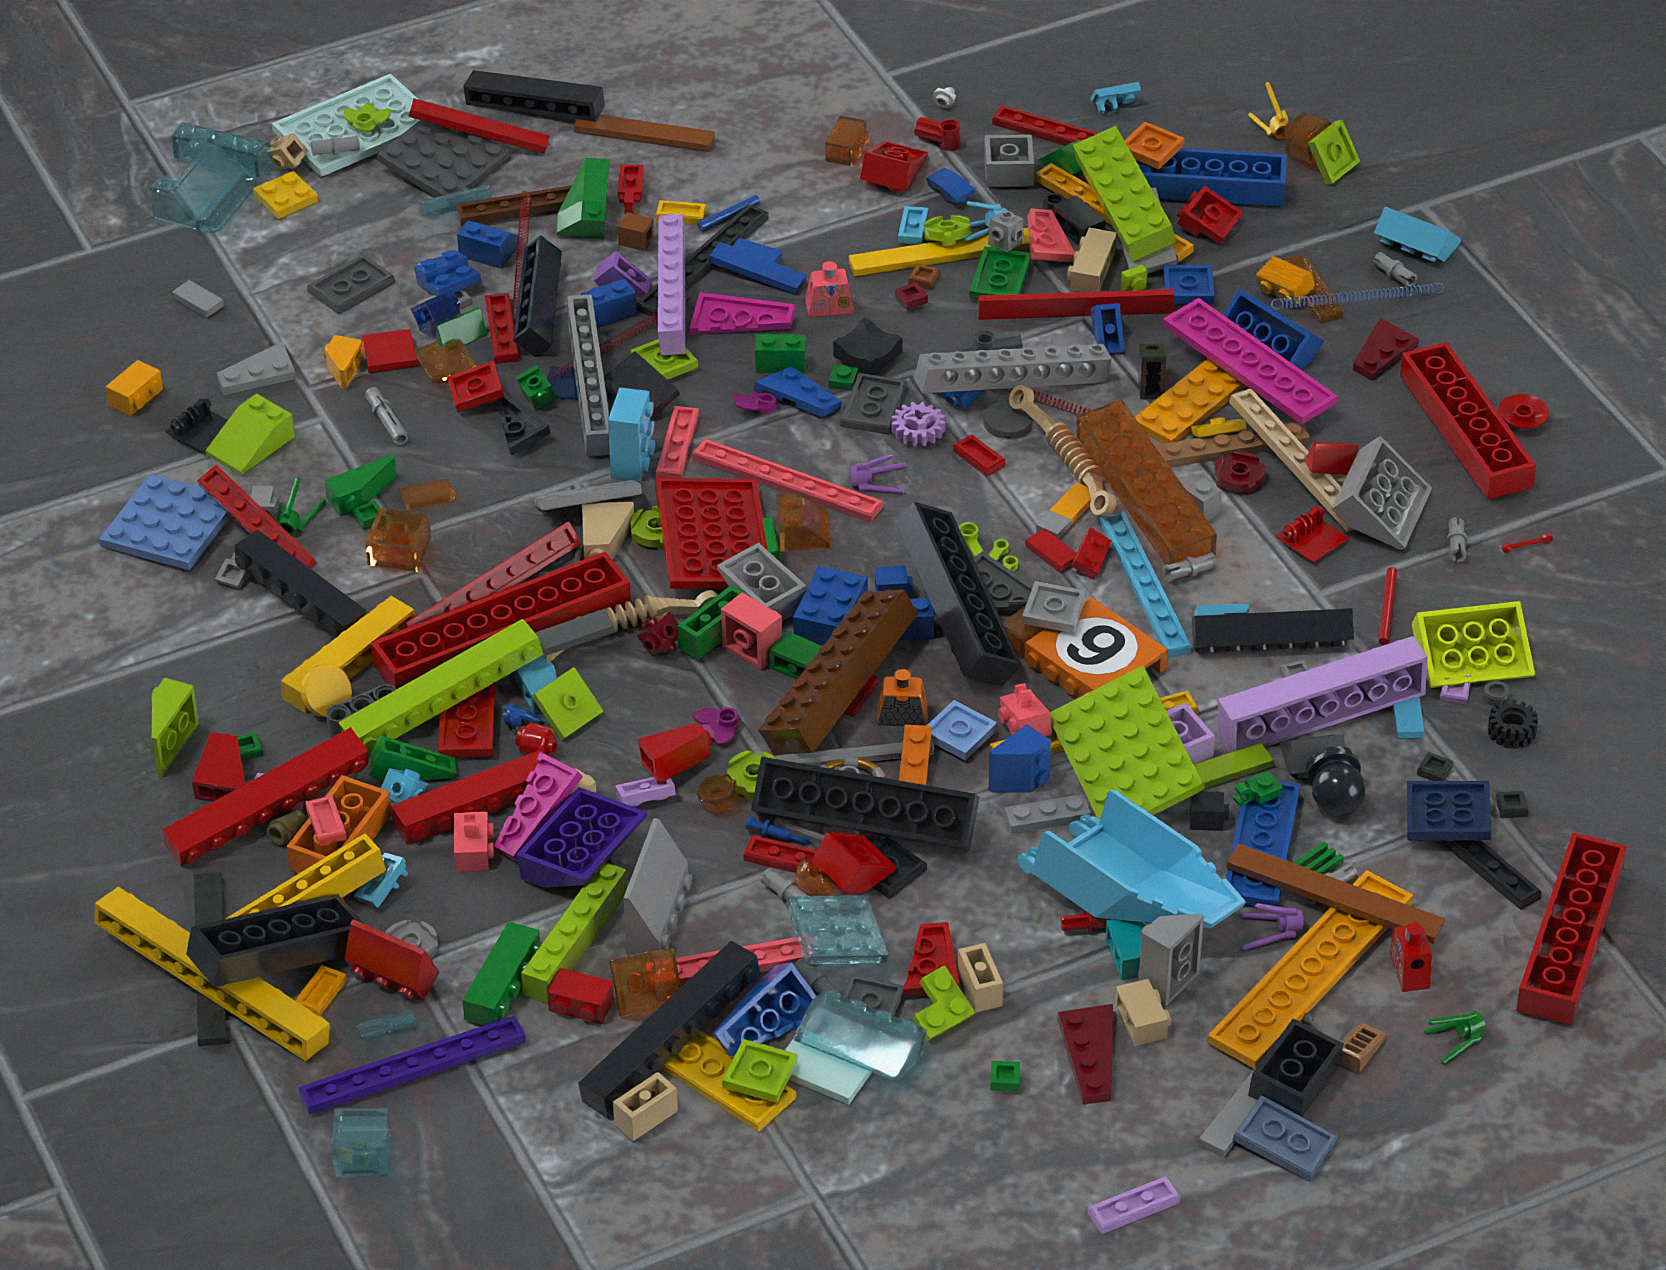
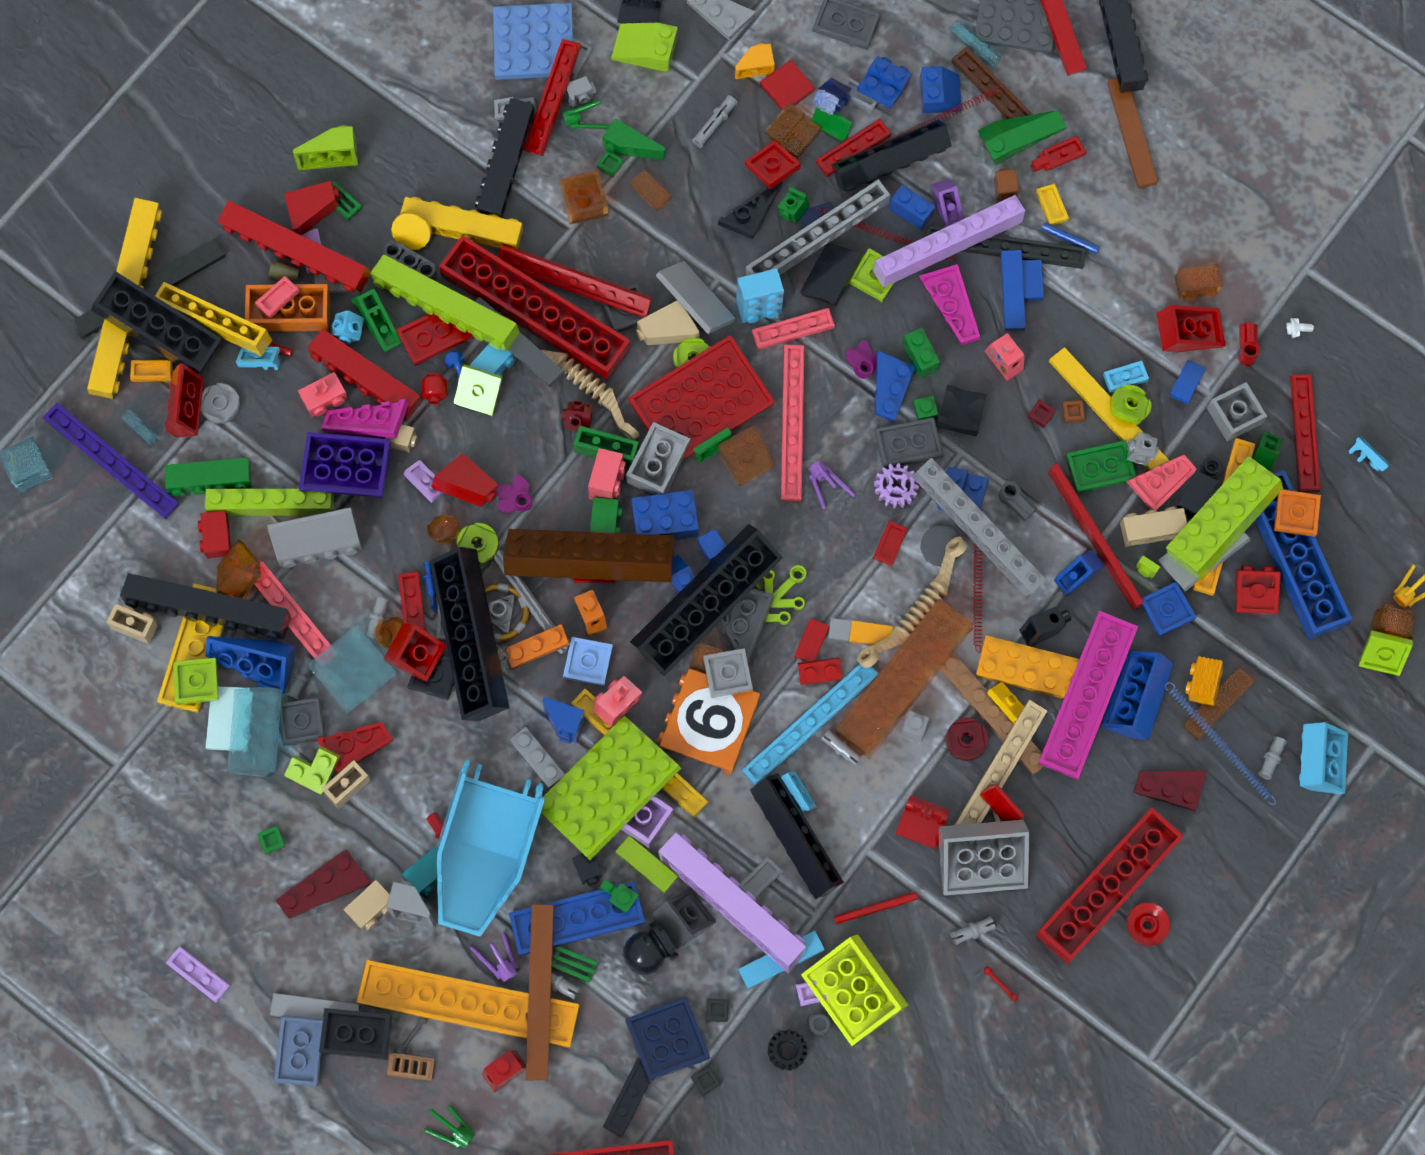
camera: 60 degrees right, 30 degrees up
(995, 209) = (1165, 432): medium azure plant -> none

